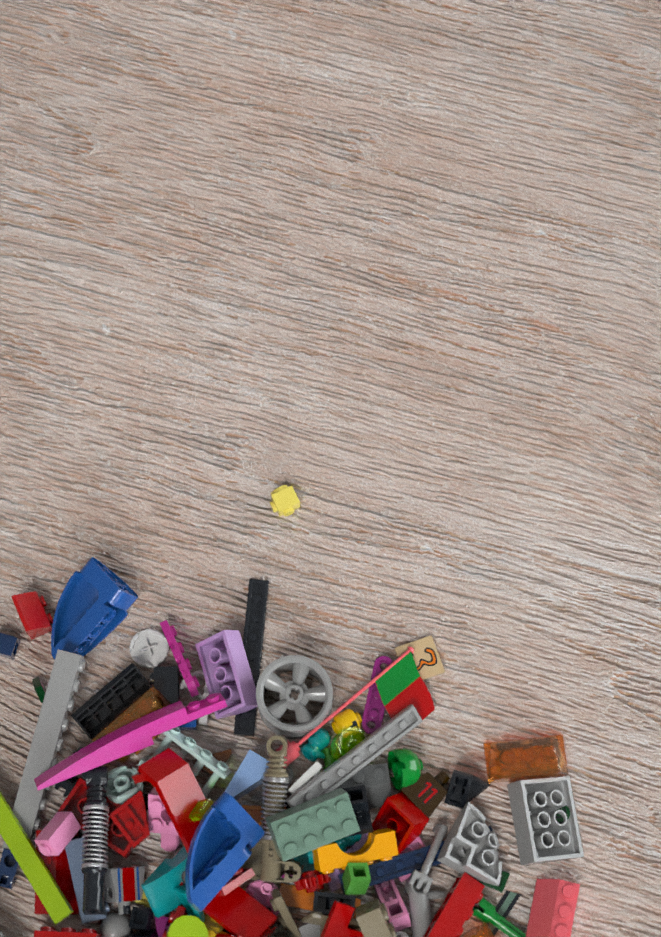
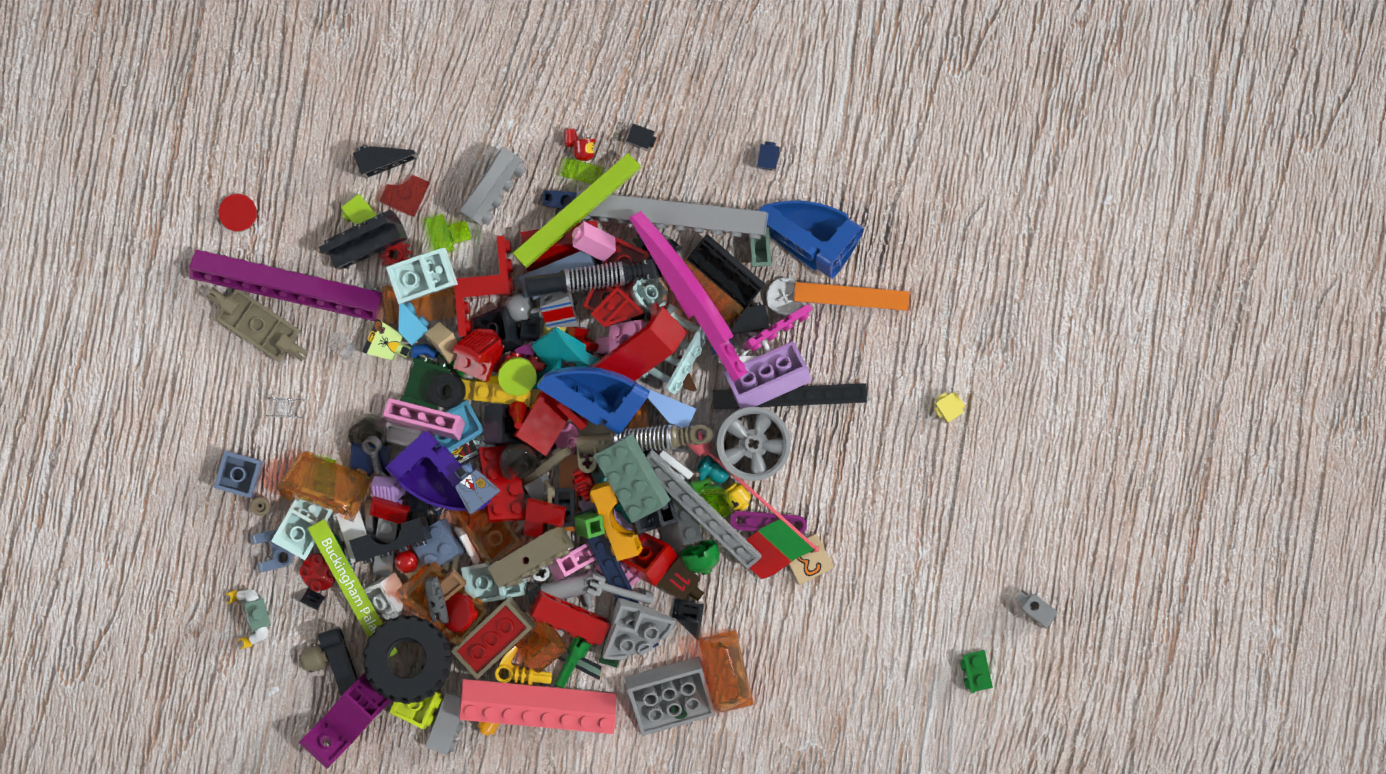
camera: 90 degrees right, 15 degrees up
(32, 613) = (801, 179): red slope -> none
(40, 691) = (730, 198): dark green tile -> none
(98, 664) = (761, 251): none -> sand green slope
(153, 863) = (581, 334): none -> red slope
(159, 582) = (851, 296): none -> orange tile
(200, 809) = (631, 371): clear neon green tile -> none
(502, 436) = (1045, 613): none -> light grey torso
(551, 510) = (976, 671): none -> green bracket

